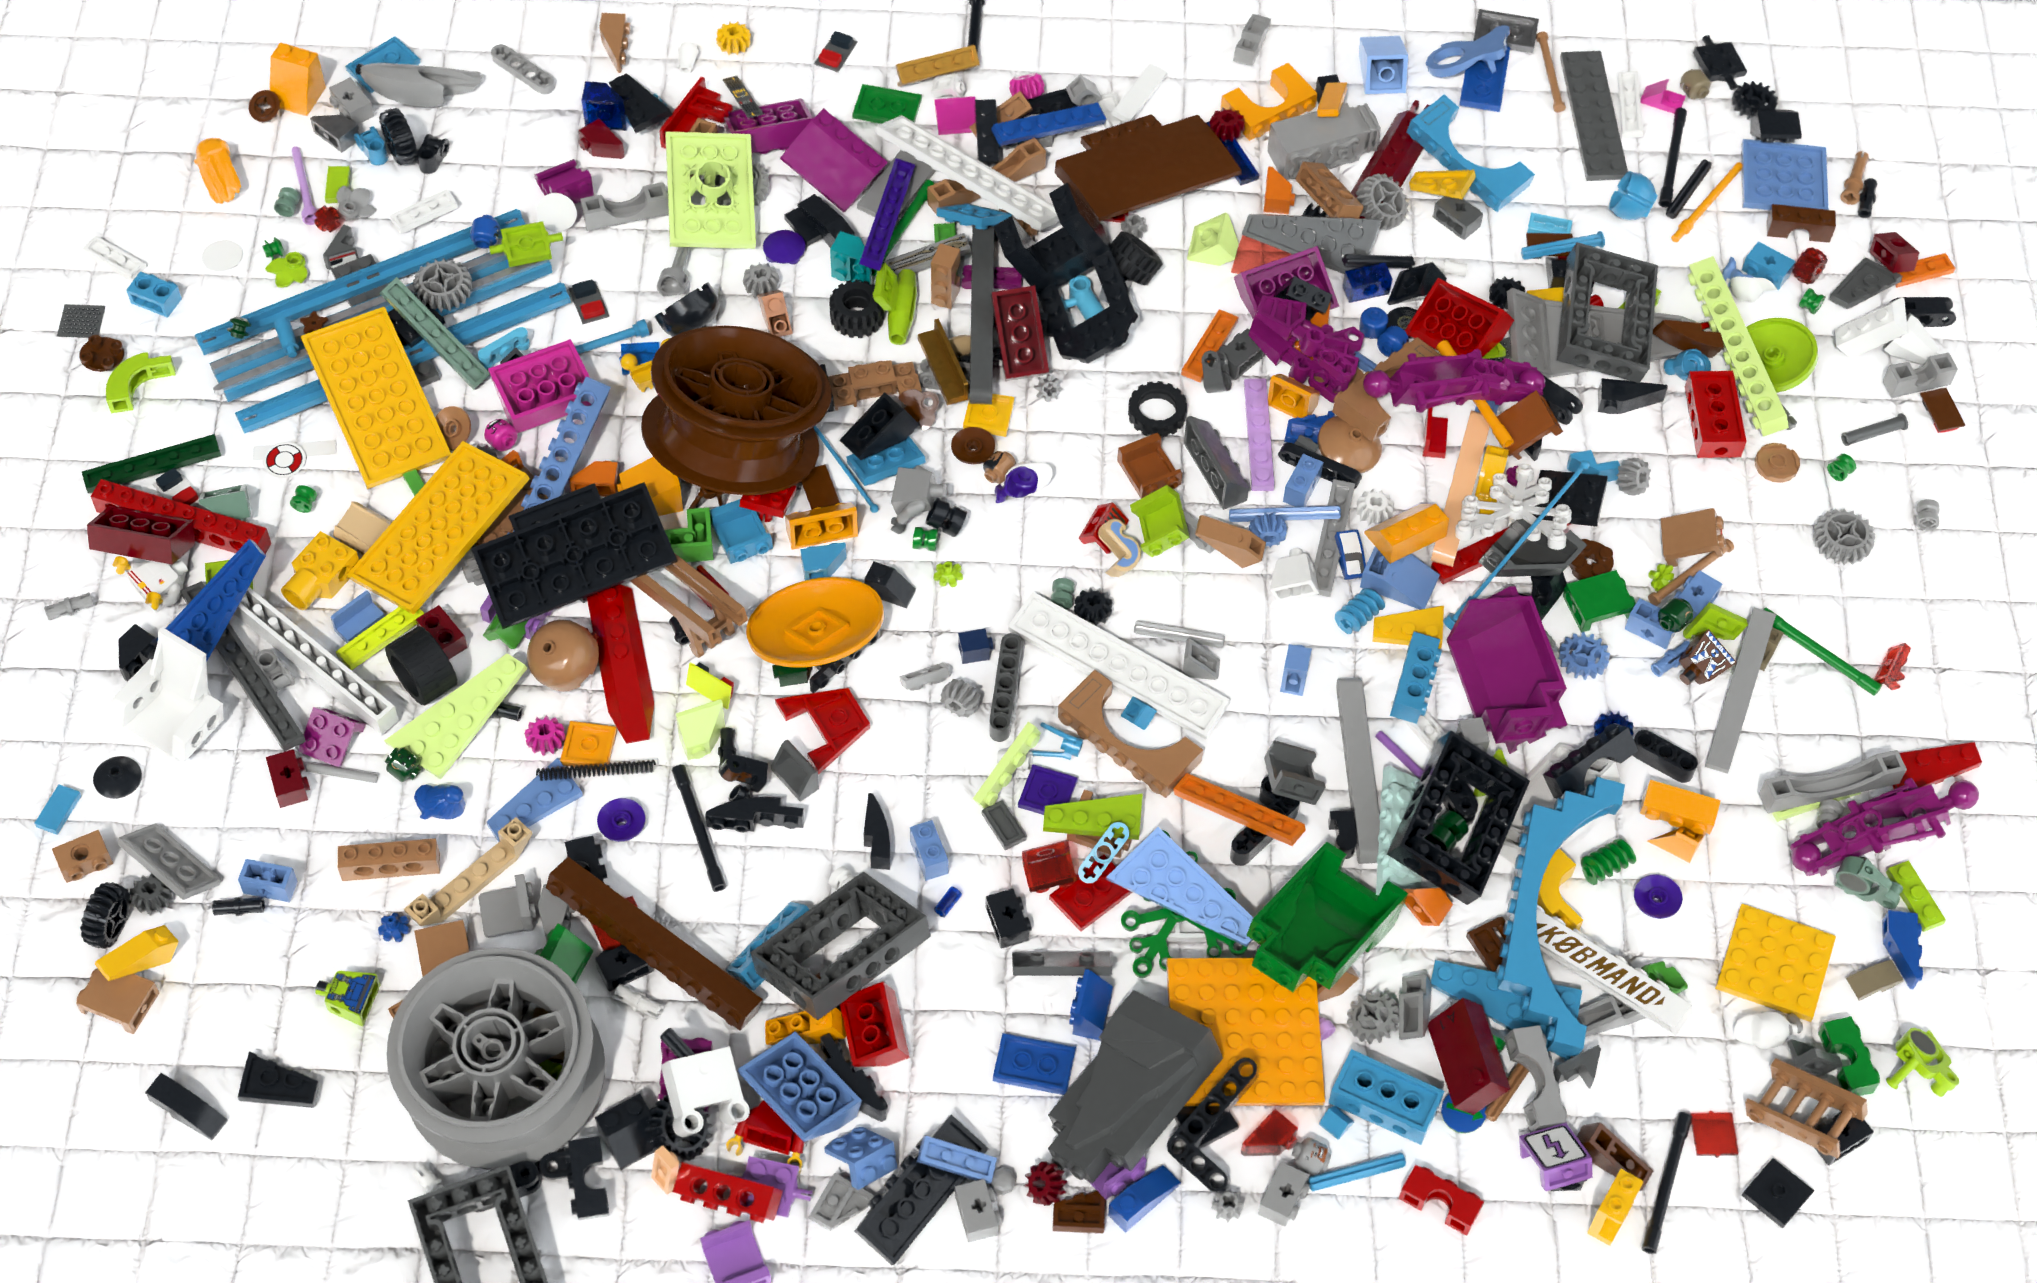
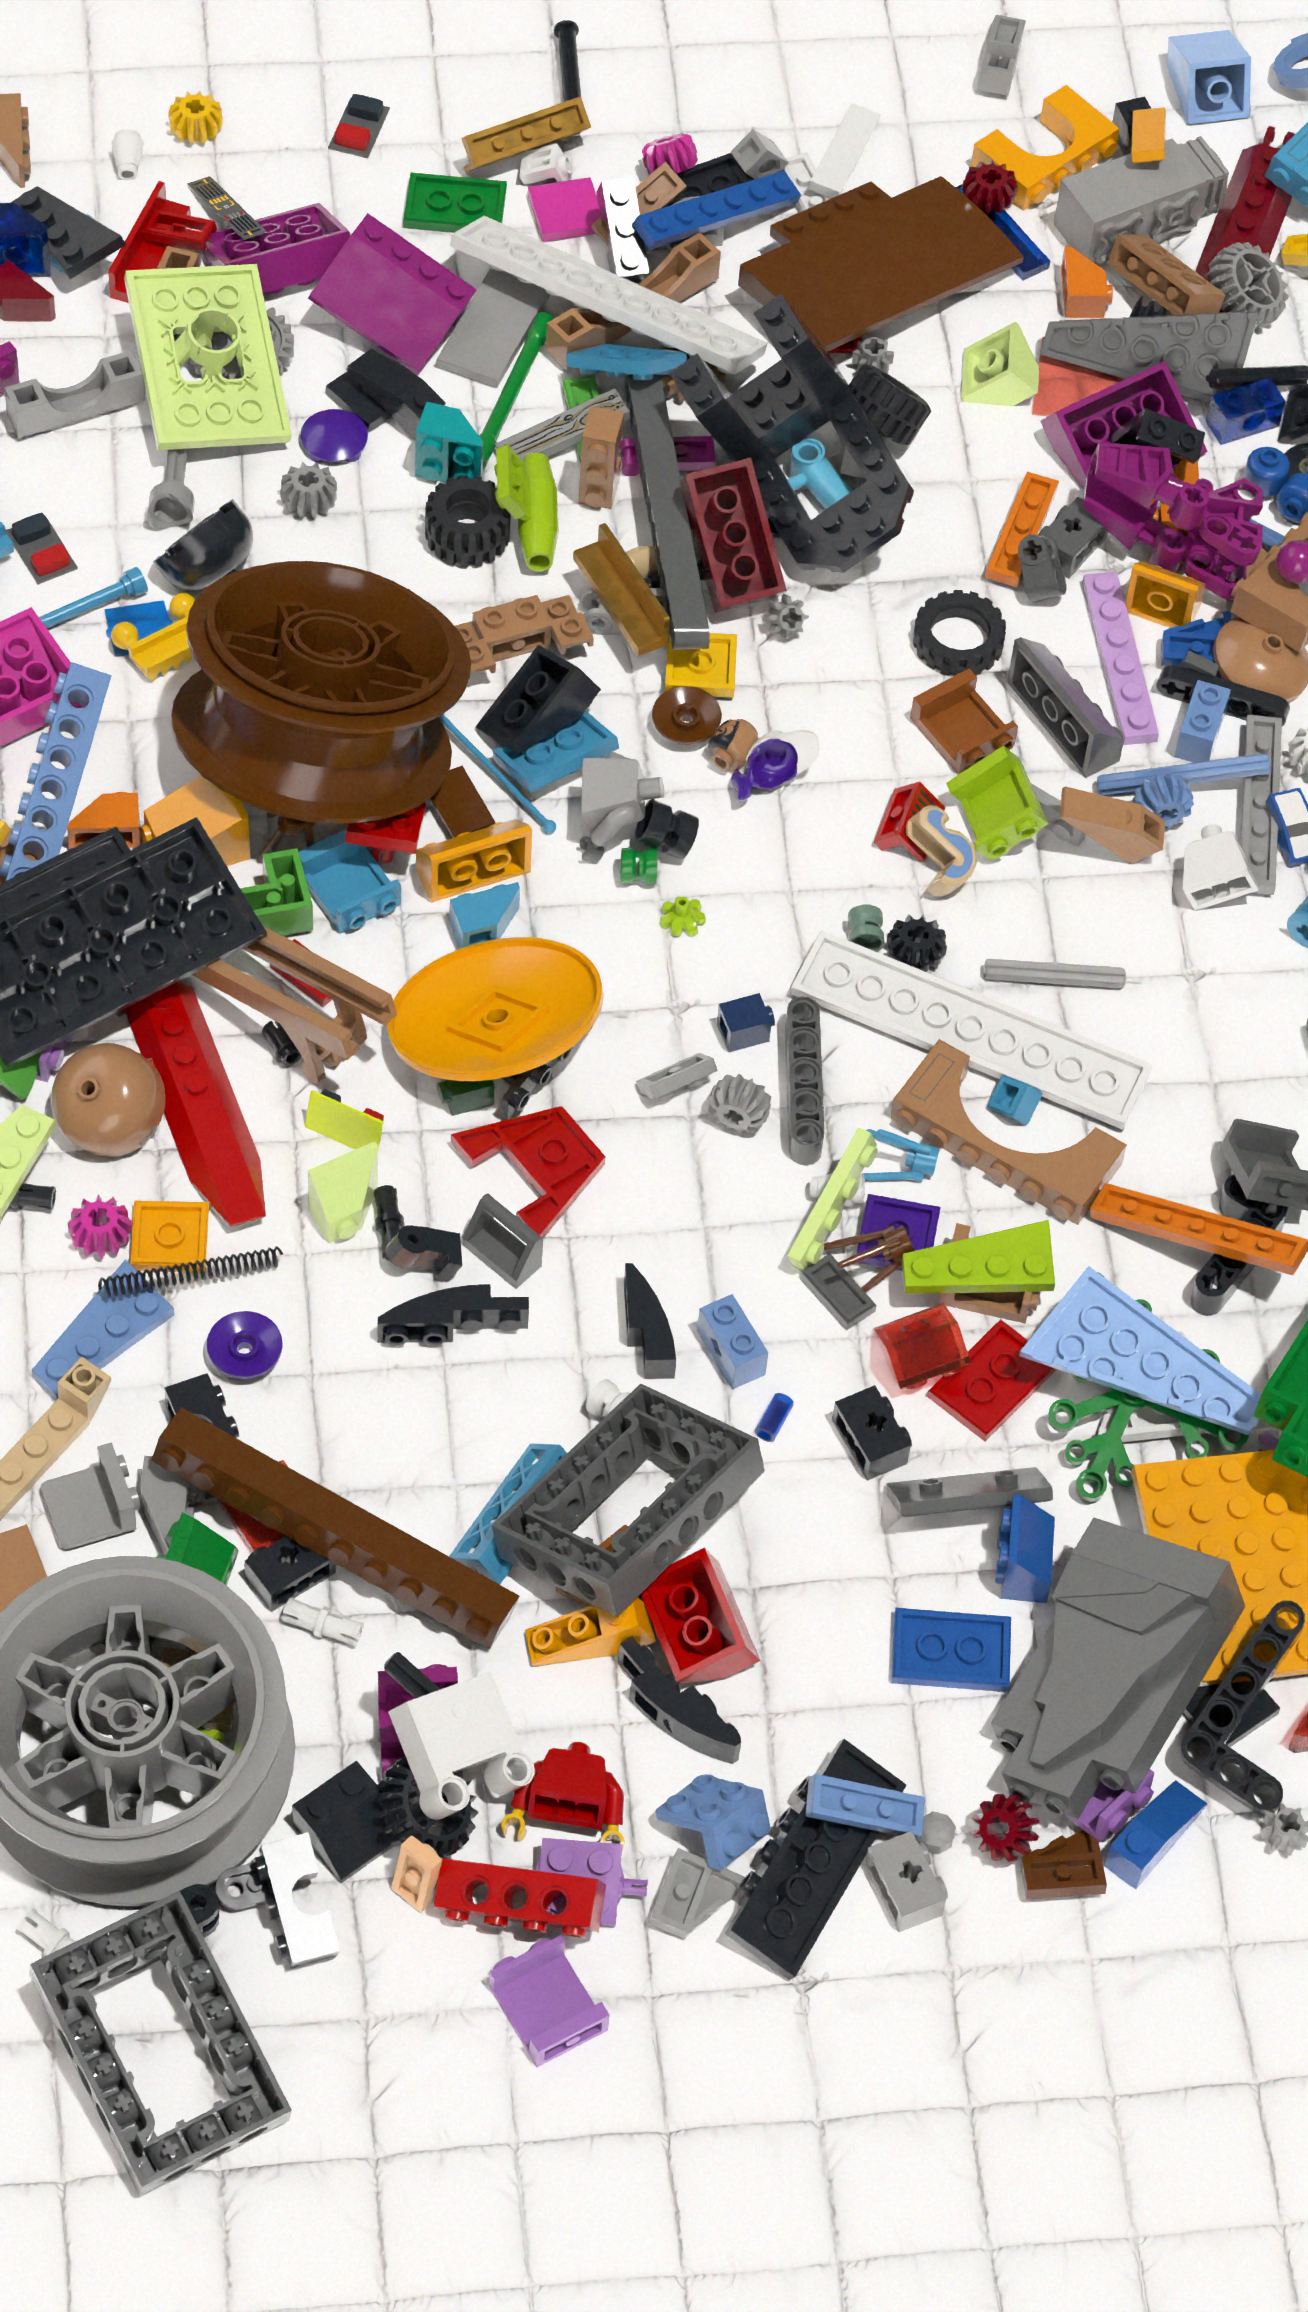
camera: 10 degrees left, 0 degrees up
(713, 870) = (401, 1406): black piece -> none
(739, 792) = (421, 1284): black plate -> none
(775, 313) = (340, 535): nougat slope -> none
(801, 1088) = (607, 1723): medium blue slope -> none
(887, 214) = (493, 370): dark purple plate -> none
(890, 585) = (598, 940): black slope -> none
(916, 406) = (586, 655): plate -> none
(1041, 799) = (893, 1246): none -> reddish brown plant
(1097, 870) = (1027, 1296): medium azure beam -> none
(1200, 662) = (1094, 1012): light grey slope -> none
(1295, 669) = (1245, 1009): medium blue brick -> none

